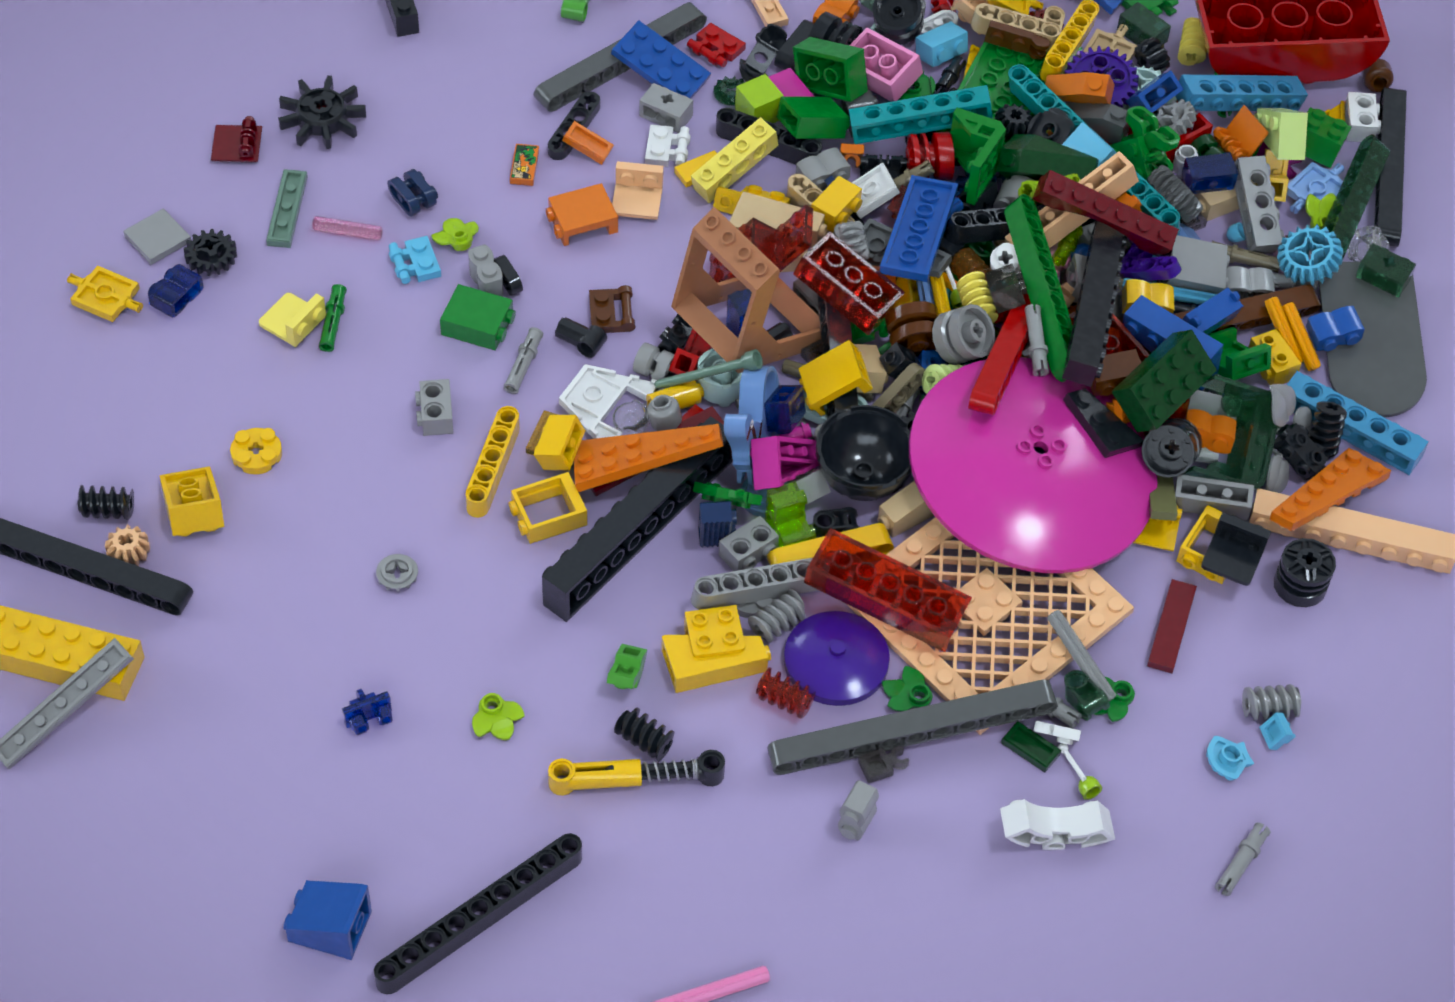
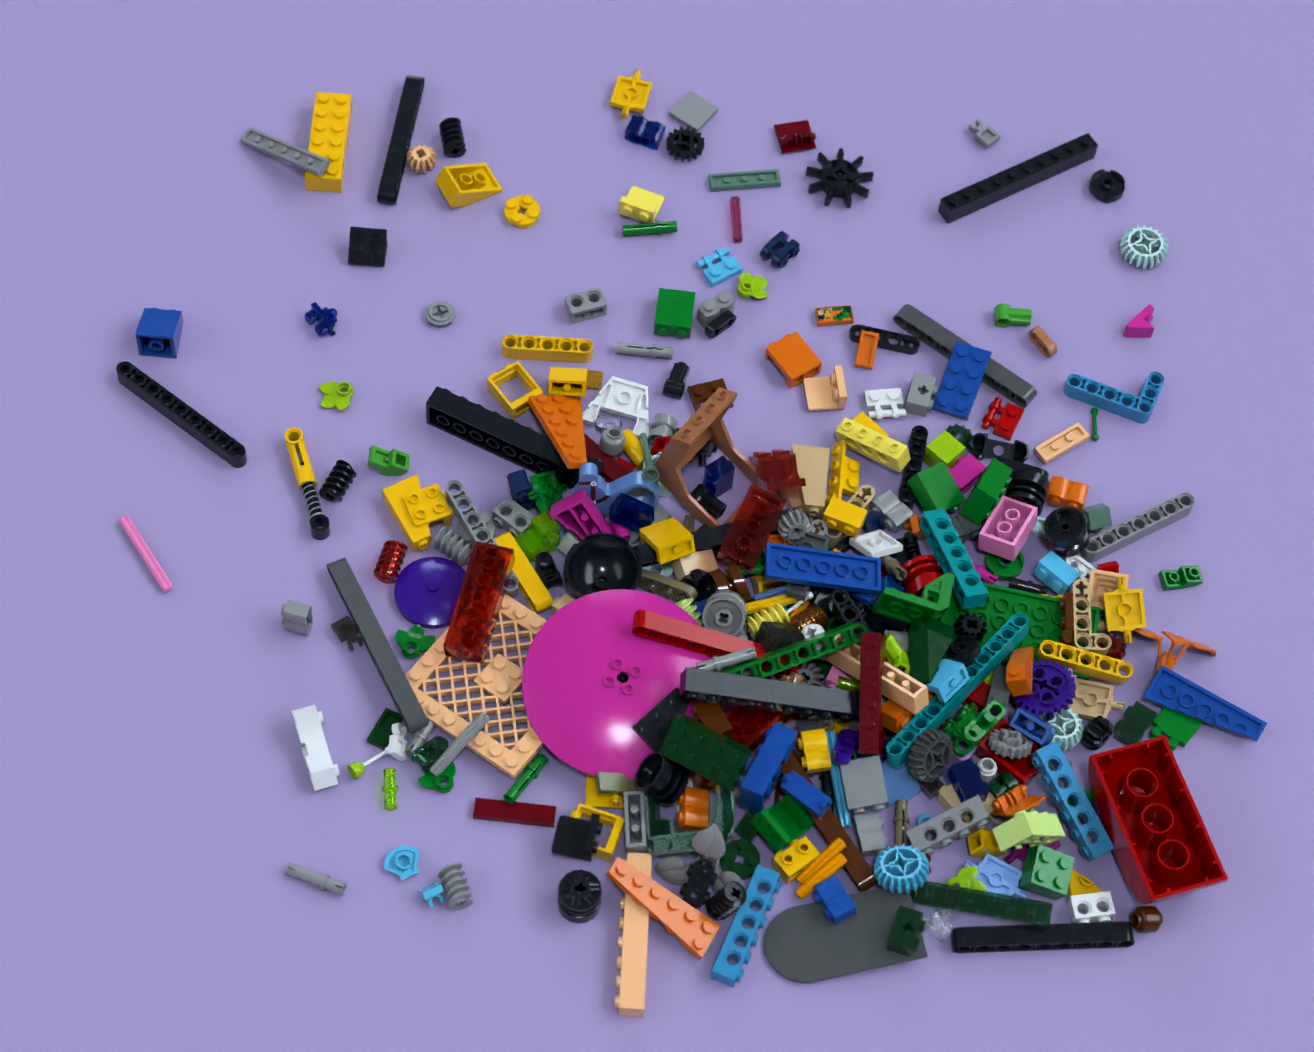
camera: 75 degrees right, 5 degrees up
(260, 634) = (367, 246): none -> black plate
(1123, 753) = (390, 789): none -> clear neon green pin
(1141, 608) = (530, 772): none -> green pin

